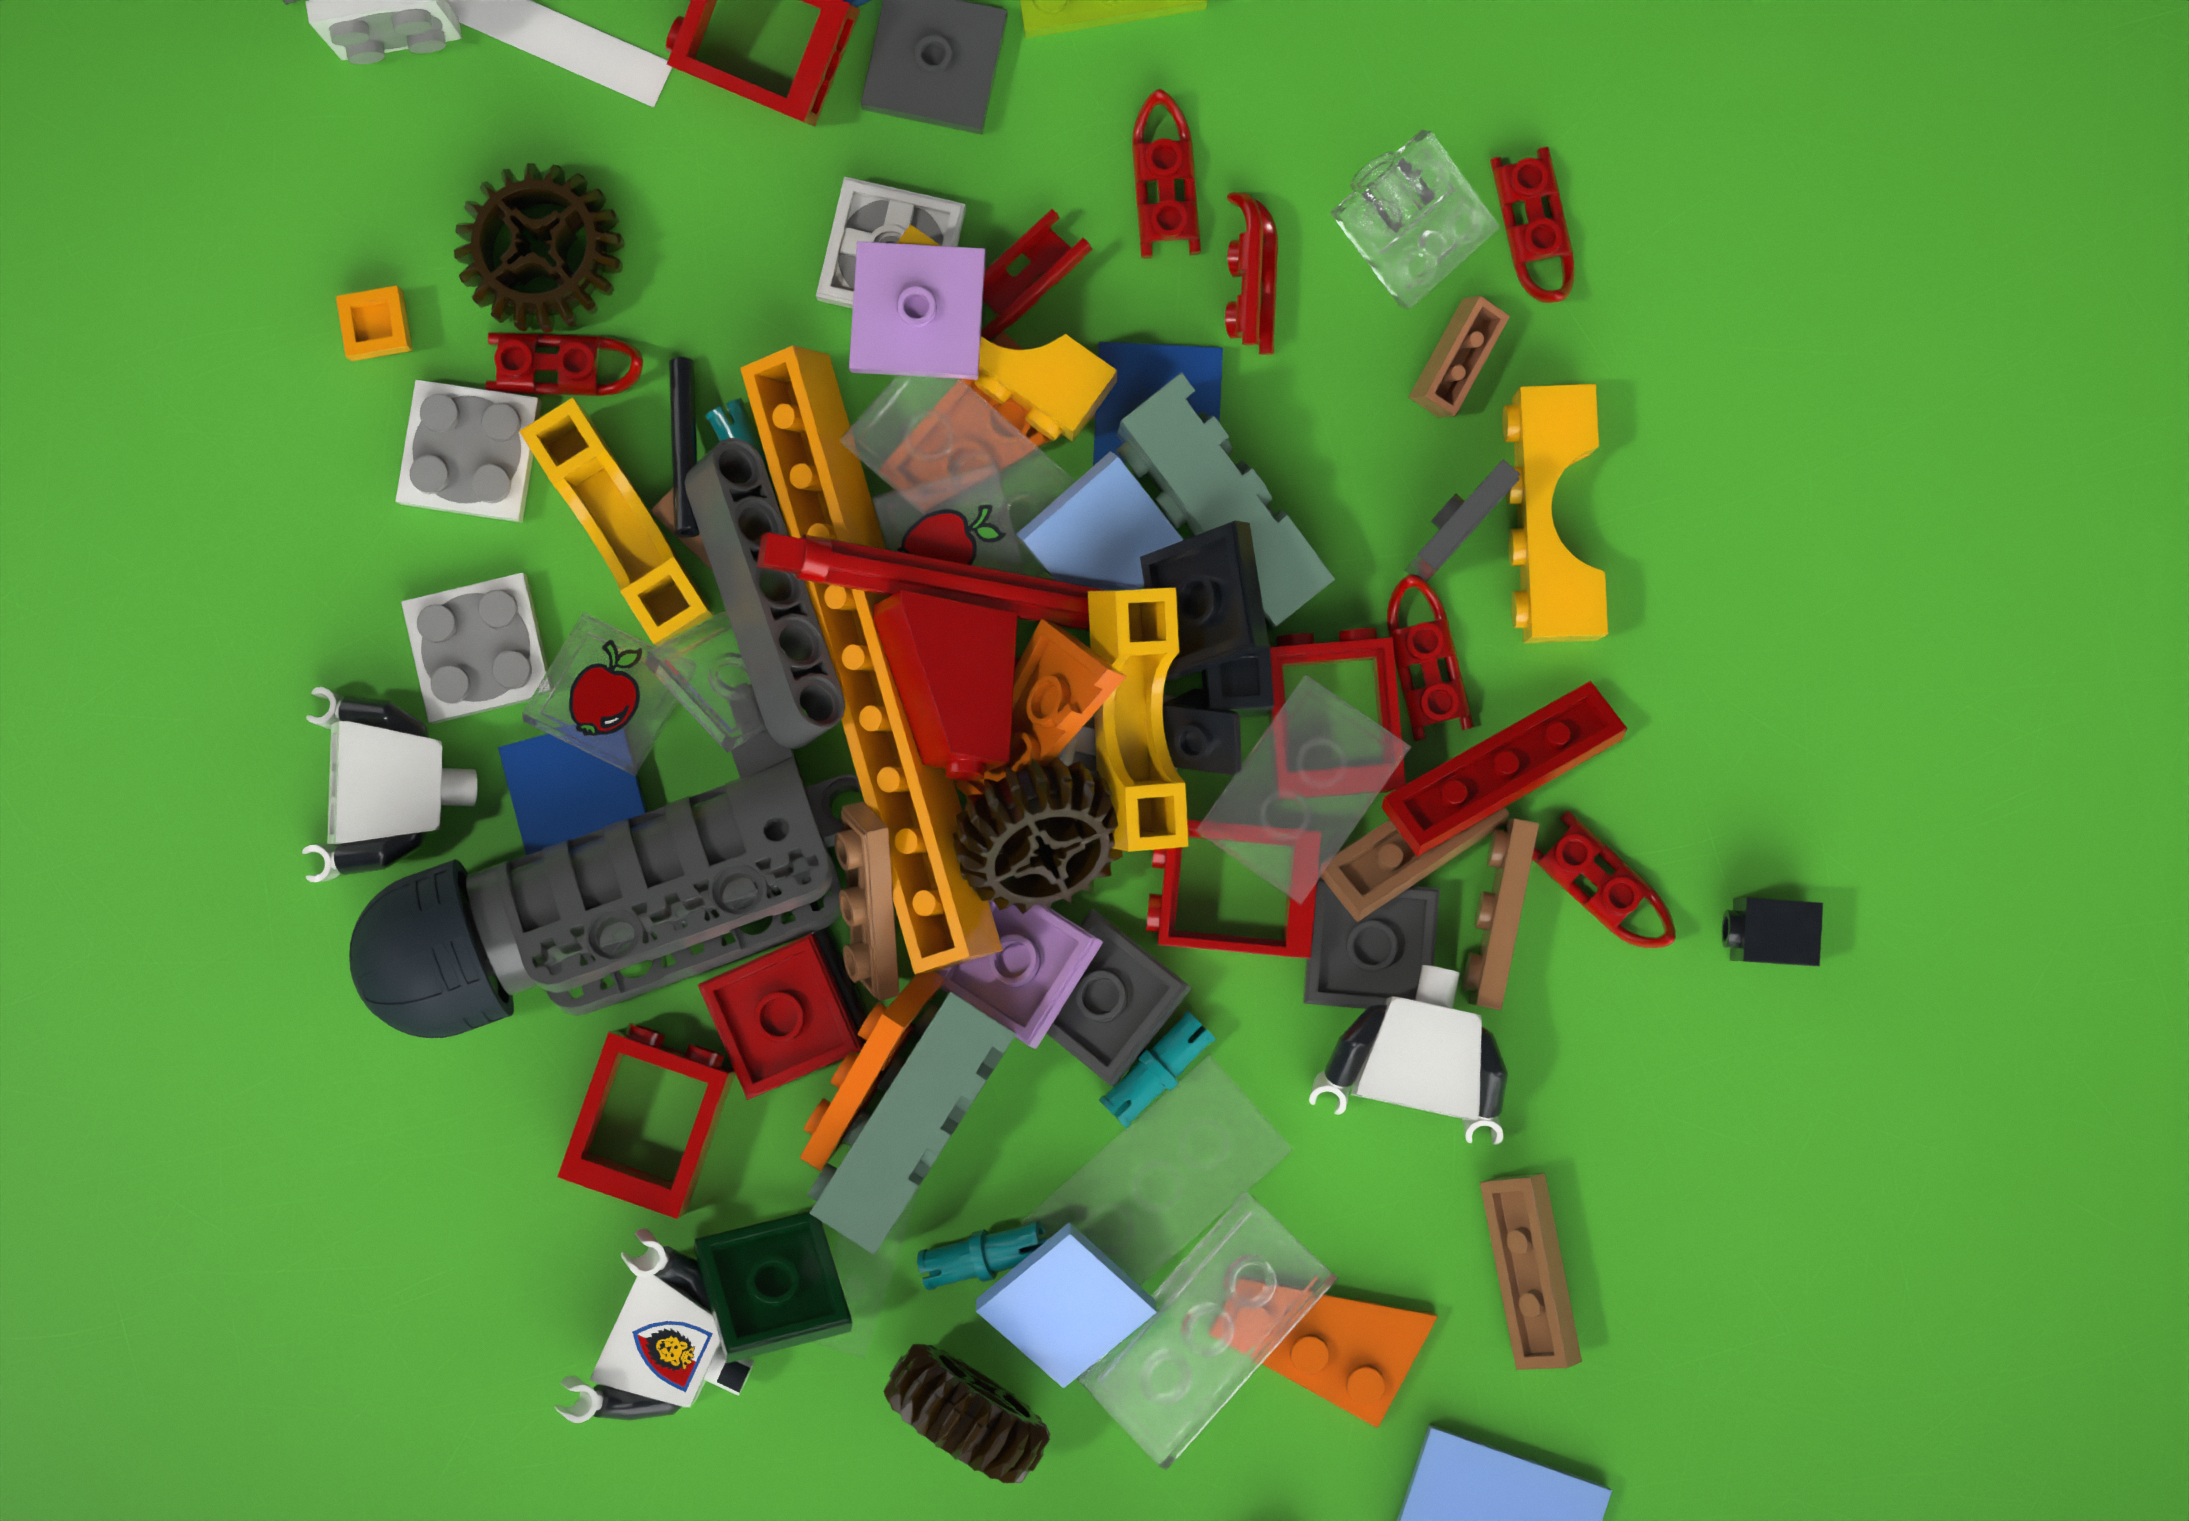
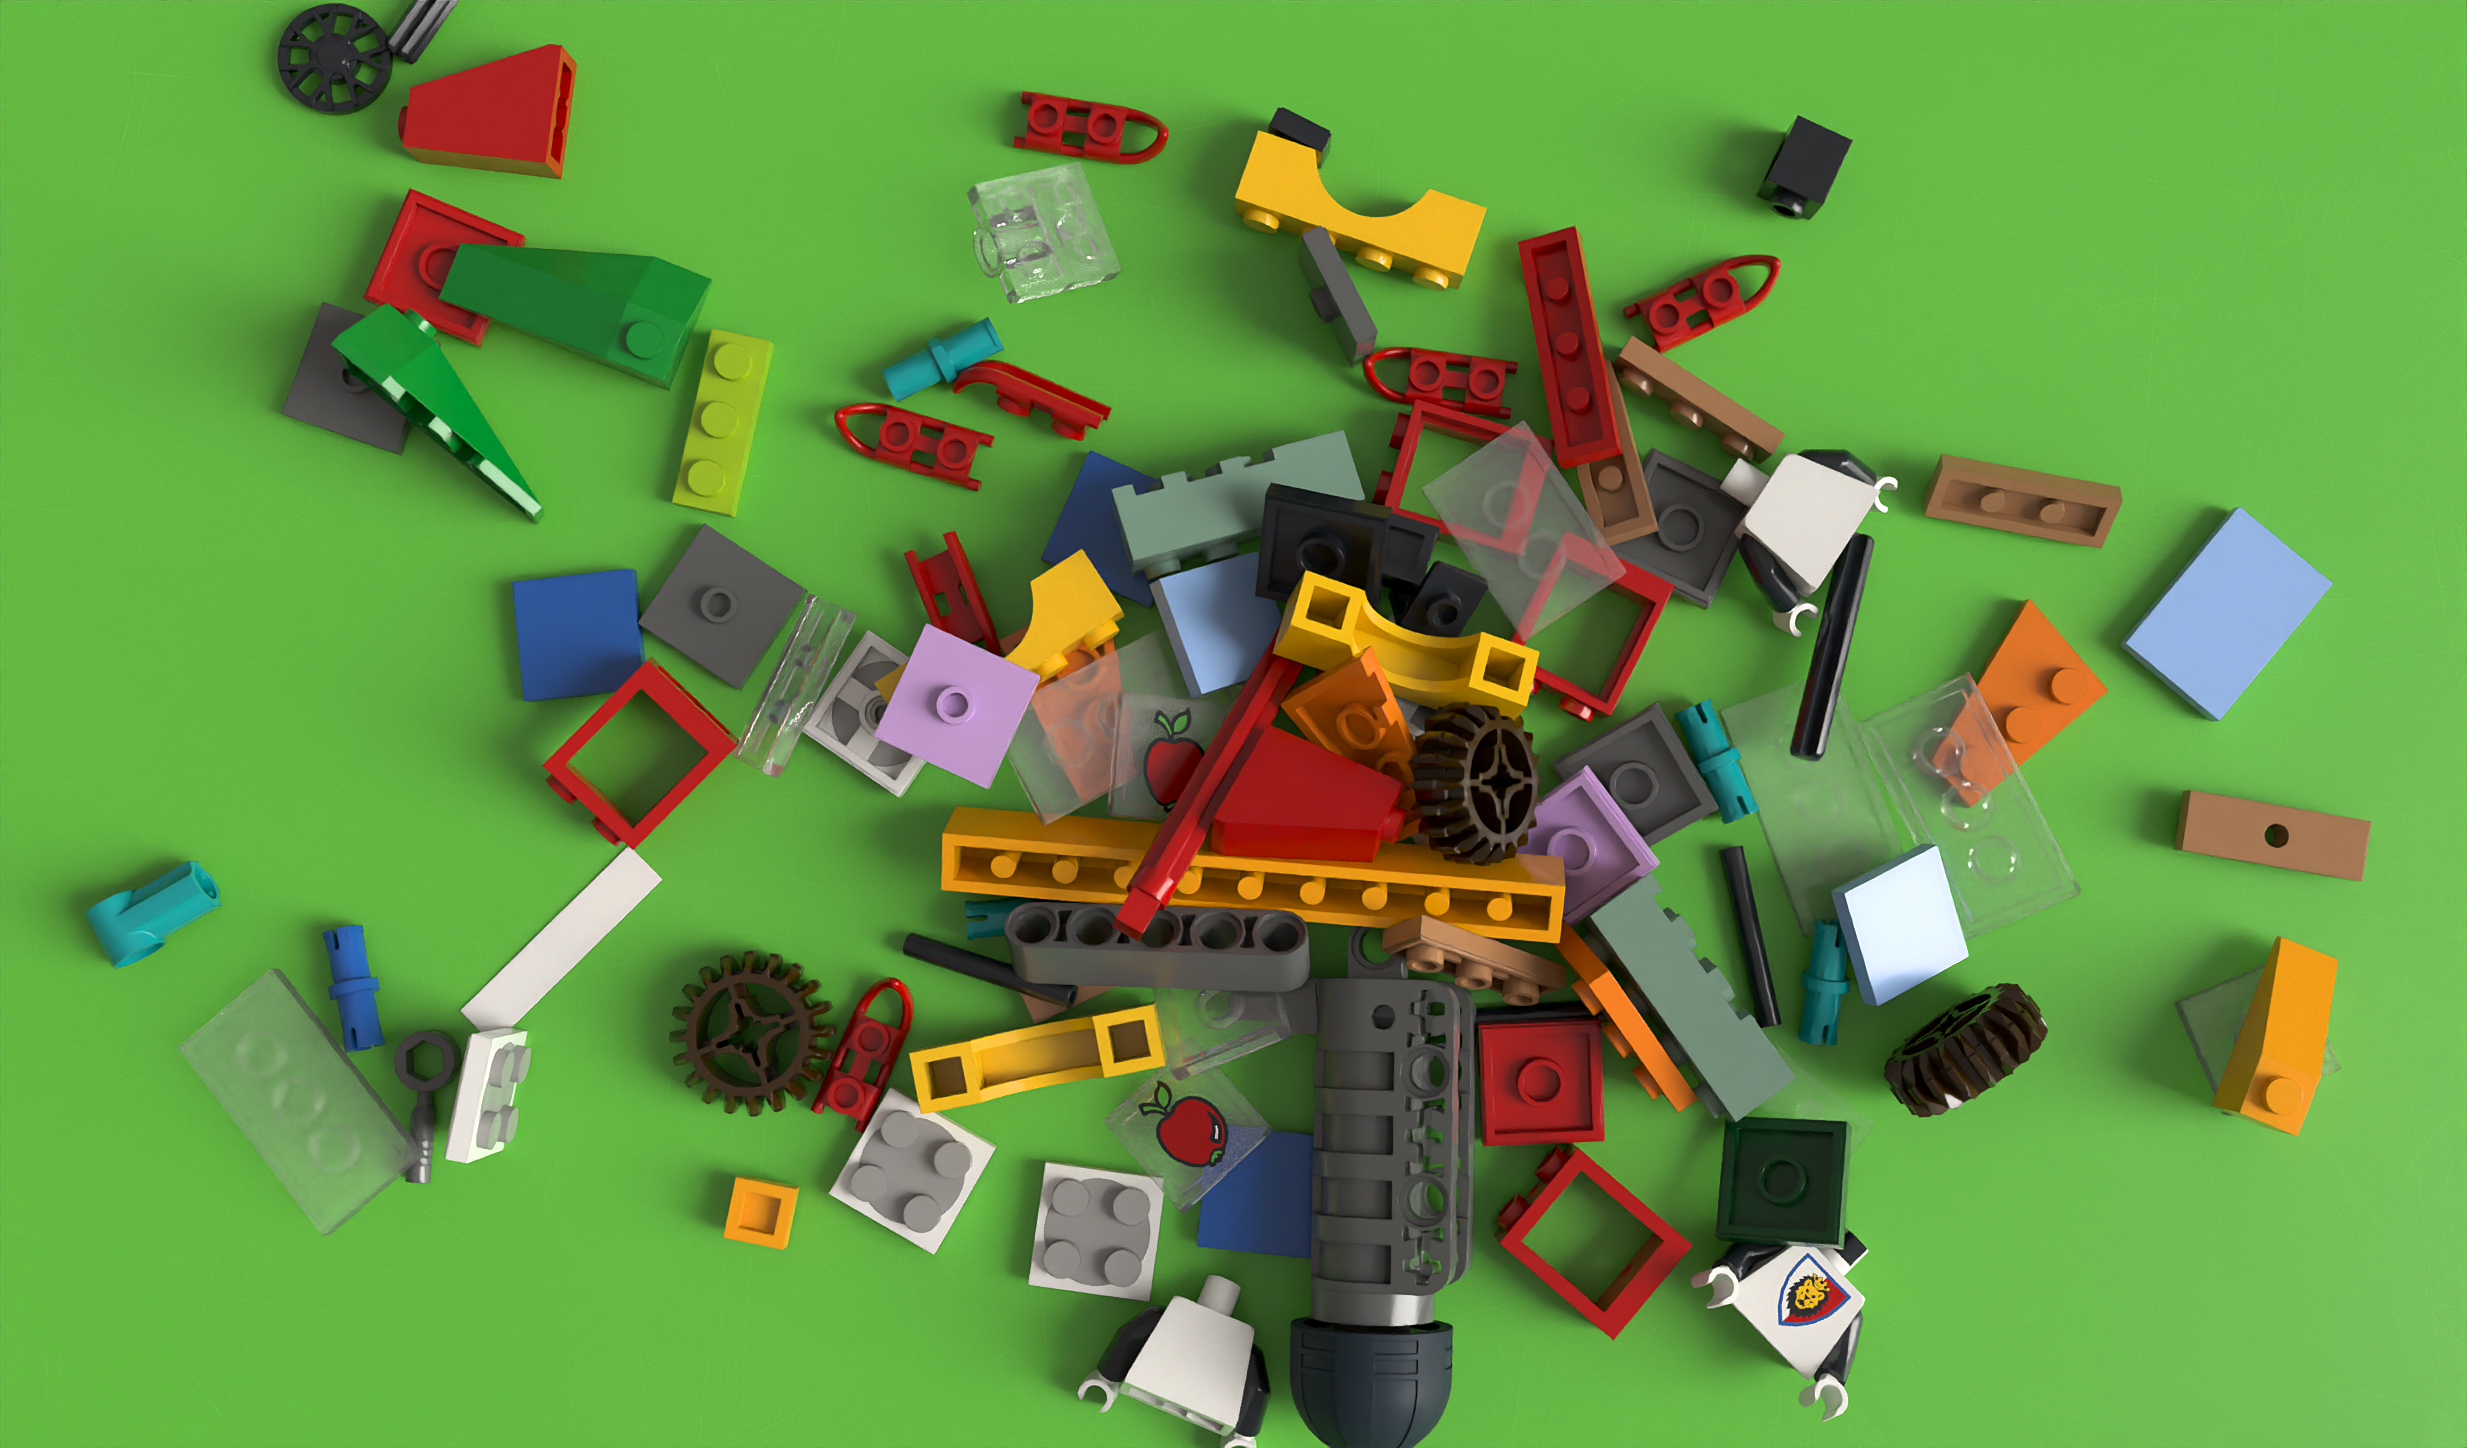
camera: 70 degrees left, 0 degrees up
(884, 156) = (794, 685): none -> clear tile
(1000, 1168) = (1750, 936): none -> black piece
(1254, 172) = (942, 359): none -> teal pin
(1312, 1138) = (1831, 649): none -> black axle
(1459, 356) = (1182, 243): nougat piece -> none
(1611, 428) = (1301, 131): none -> black tile

